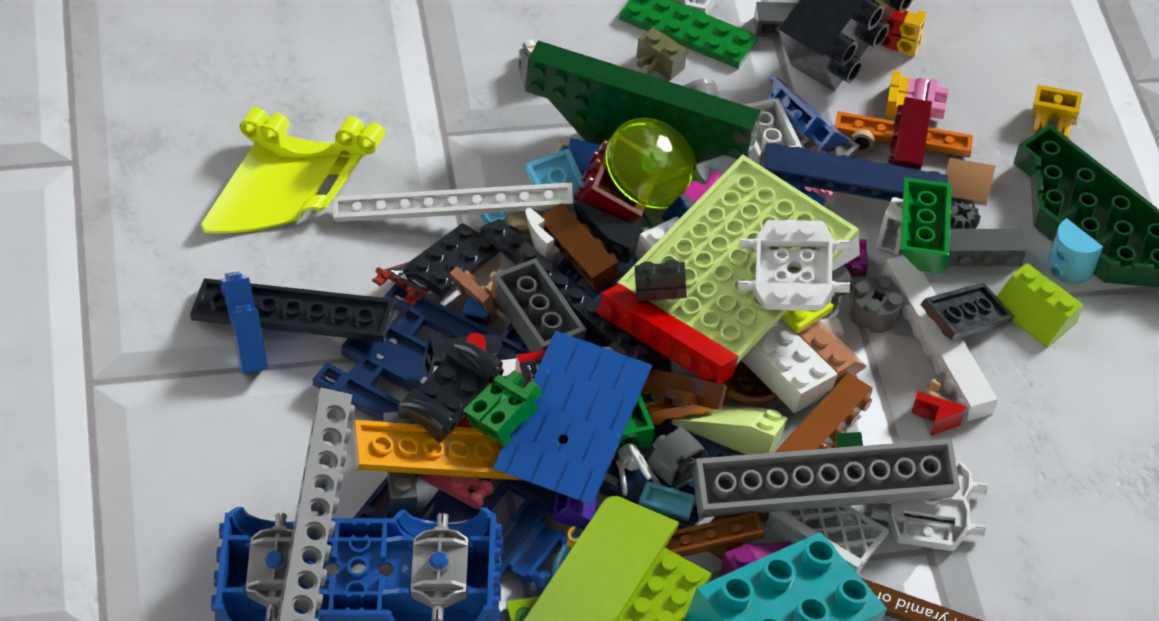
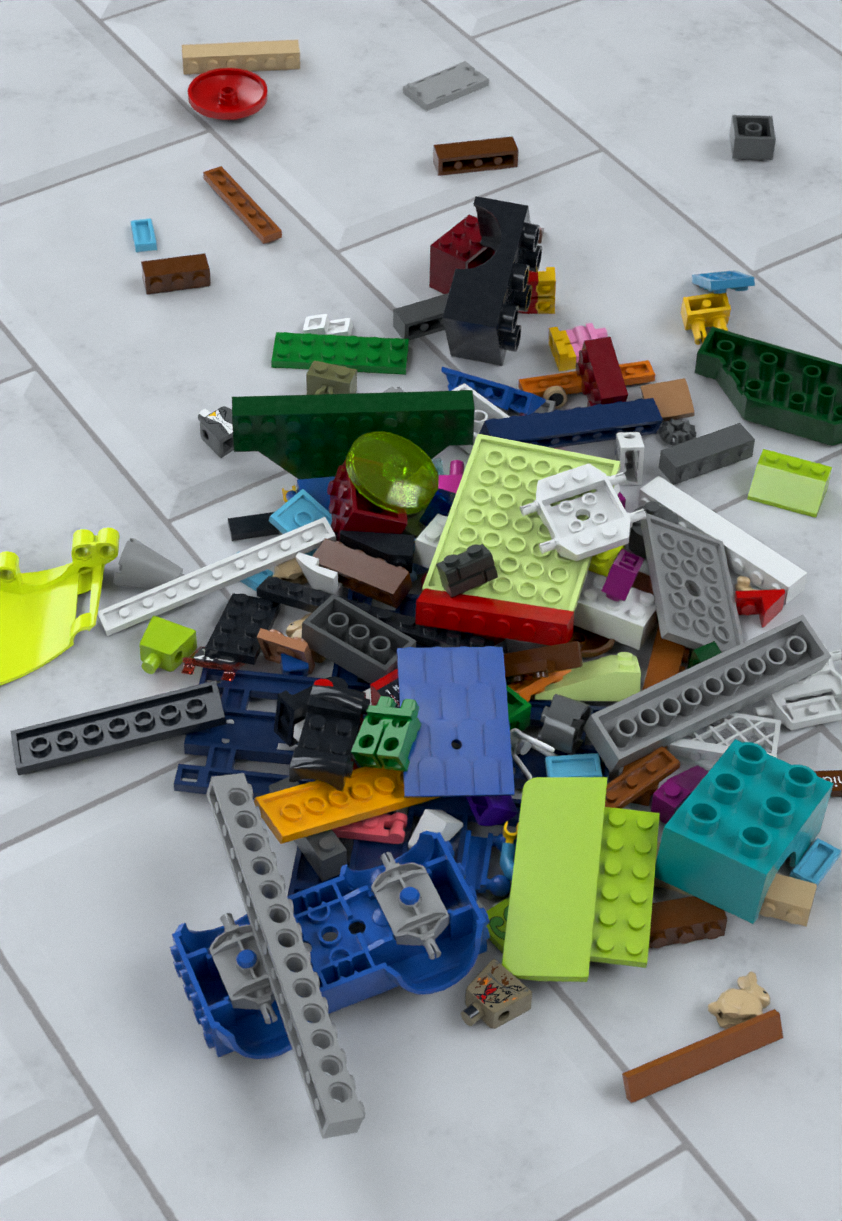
camera: 20 degrees left, 5 degrees down
(244, 322) = (79, 753): blue arch -> none
(376, 248) = (165, 645): none -> lime torso
(395, 170) = (144, 567): none -> light grey cone
(511, 165) = (251, 526): none -> black tile
(513, 508) = (436, 822): none -> white slope
(807, 337) = (622, 575): none -> magenta slope
(898, 352) = (682, 557): none -> light grey plate
(926, 224) = (664, 443): green slope -> none
(966, 311) = (736, 508): black plate -> none
(1073, 254) = (795, 428): medium azure brick -> none
(1088, 80) = (720, 281): none -> dark azure plate

